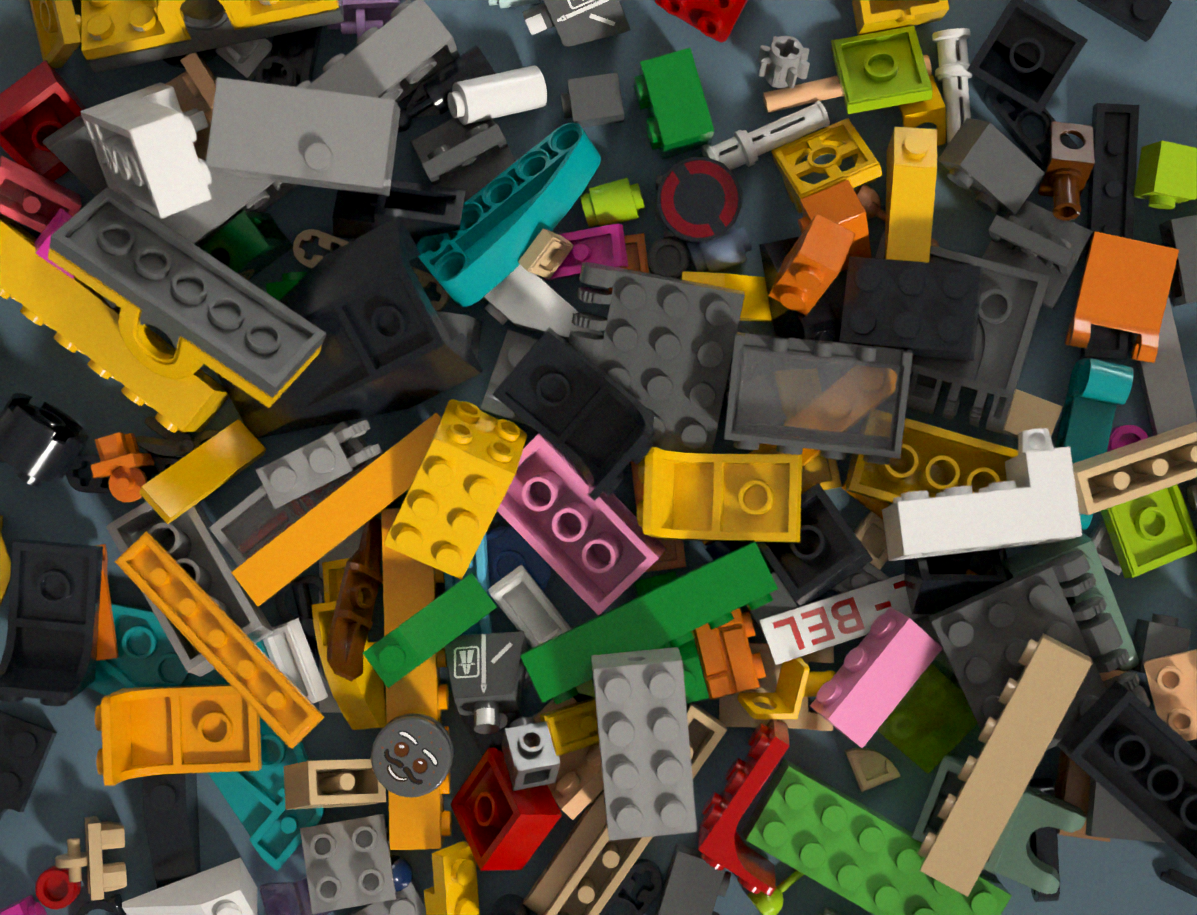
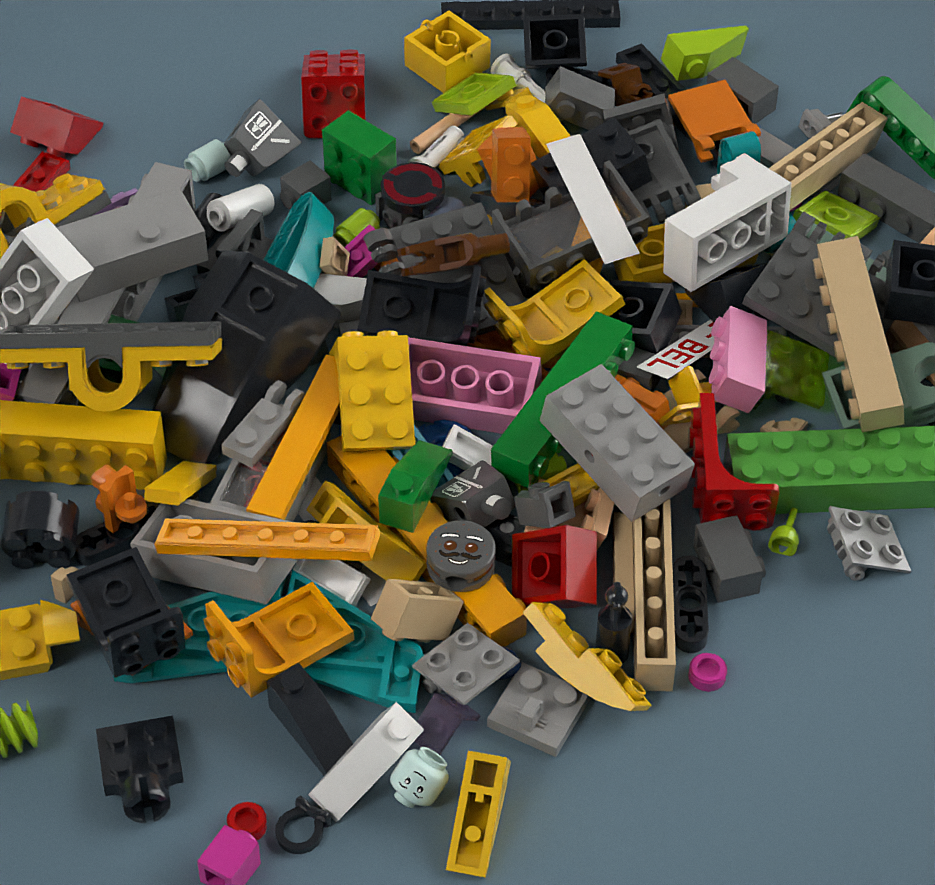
camera: 35 degrees left, 40 degrees down
(33, 510) = (60, 585): none -> tan tile
(100, 876) = (261, 776): tan hips -> none
(351, 617) = (350, 495): reddish brown piece -> none
(628, 384) = (453, 252): none -> reddish brown connector
(783, 62) = (410, 118): light grey gear -> none
(857, 389) = (592, 199): none -> white sticker

